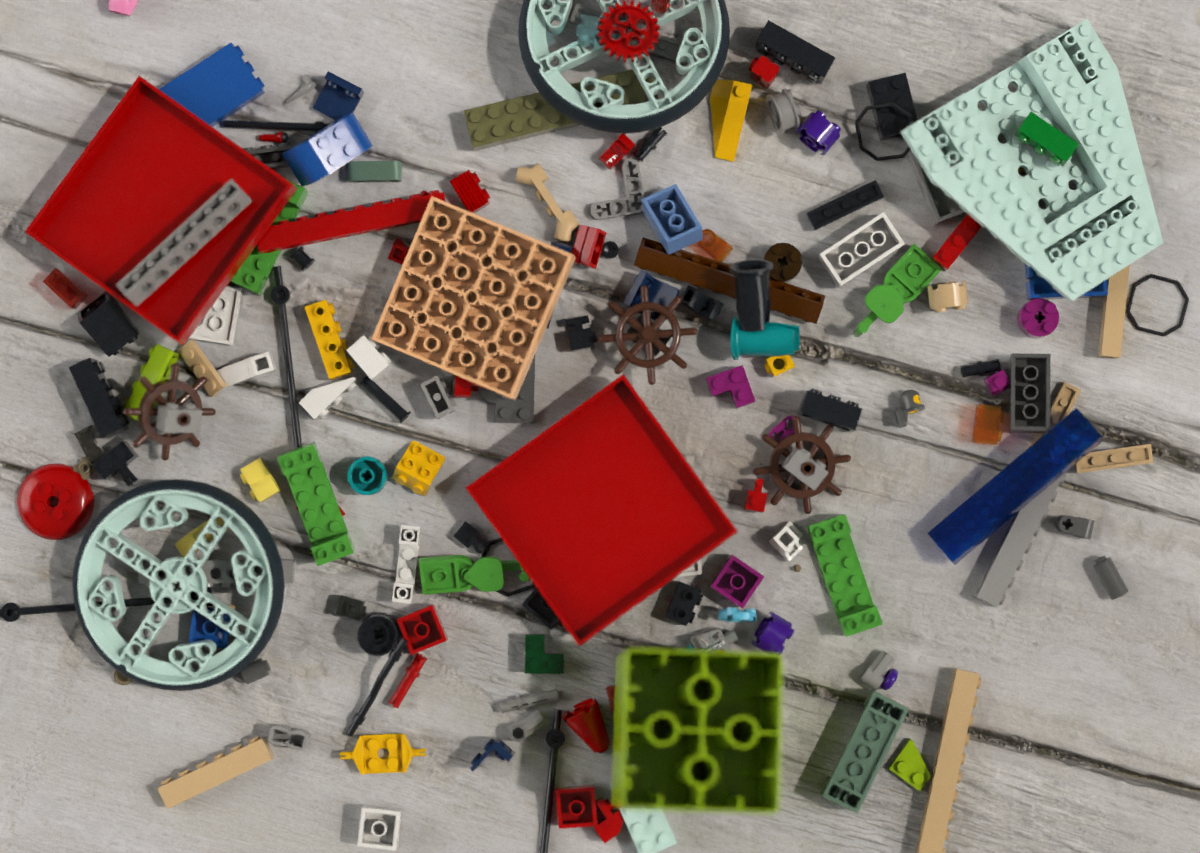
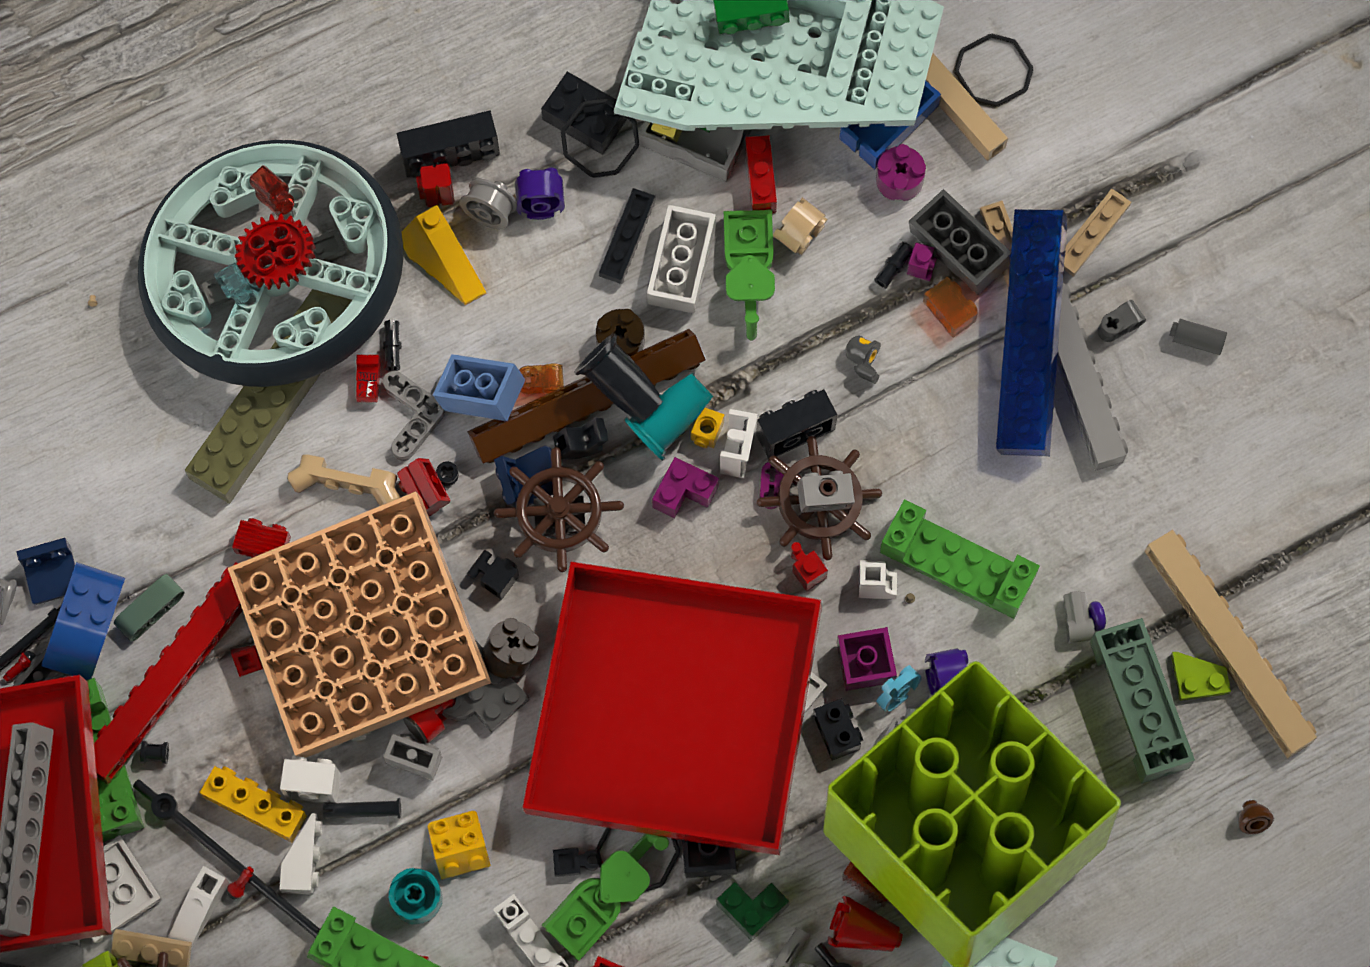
camera: 50 degrees left, 15 degrees down
(277, 378) = (236, 889): none -> red piece
(557, 387) = (510, 649): none -> dark brown brick
(785, 392) = (738, 443): none -> white window

